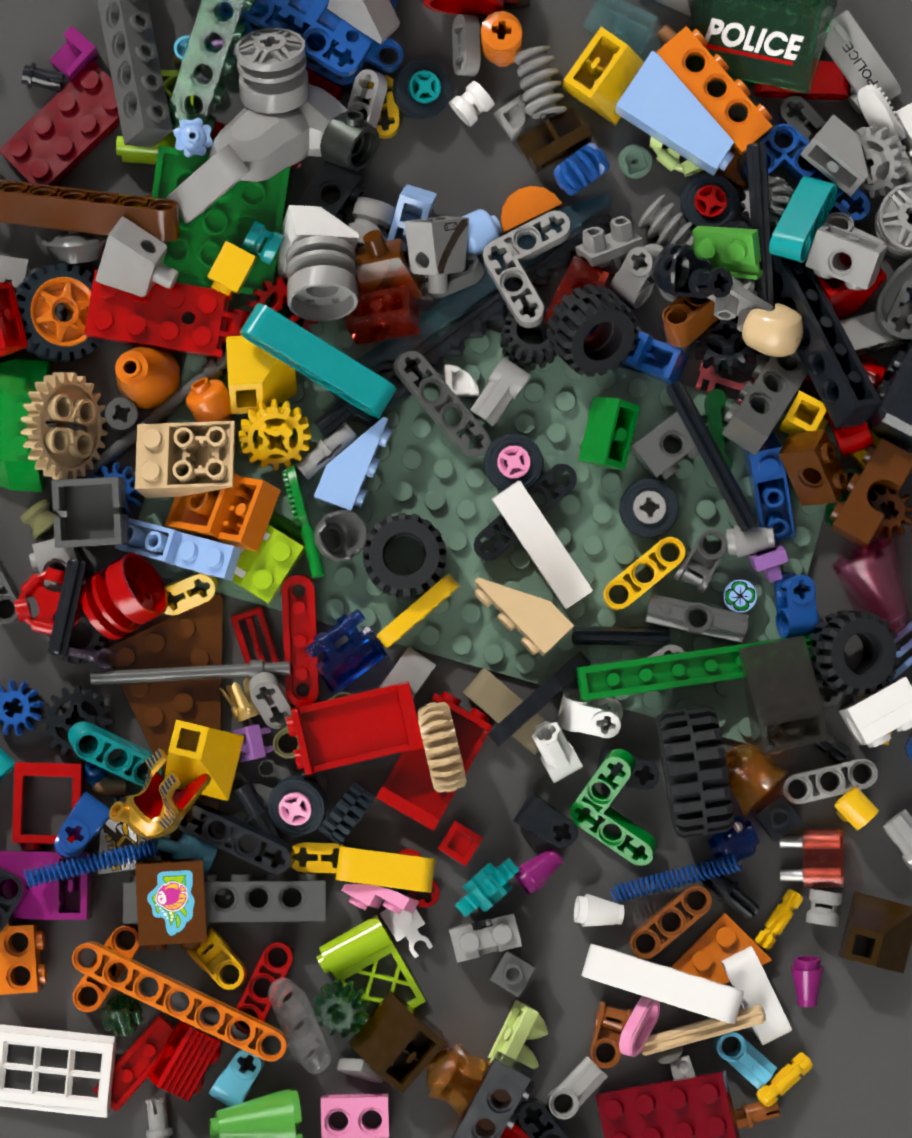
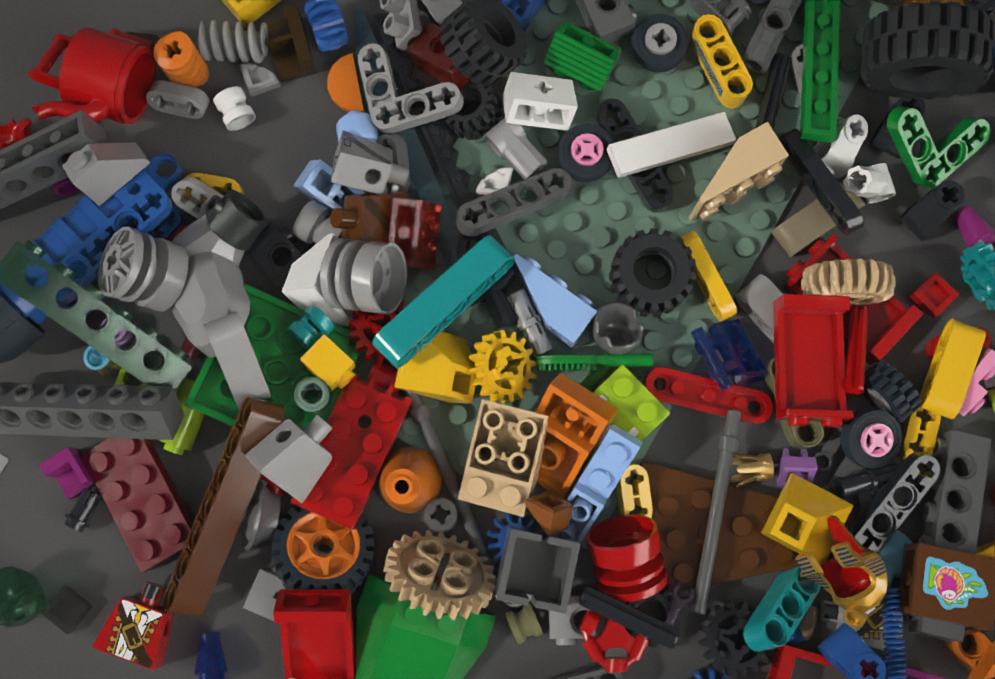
camera: 75 degrees left, 5 degrees down
(145, 512) = (550, 512): none -> dark orange slope
(188, 253) = (315, 386): none -> sand green cone
(193, 137) = (186, 368): light blue plant -> none
(209, 401) = (453, 422): orange head -> none
(265, 703) = (760, 435): light grey beam -> none
(266, 631) = (668, 443): red tile -> none
(381, 773) = (856, 349): none -> red axle
(430, 81) = (208, 138): black wheel -> none
(549, 402) = (539, 101): none -> white brick

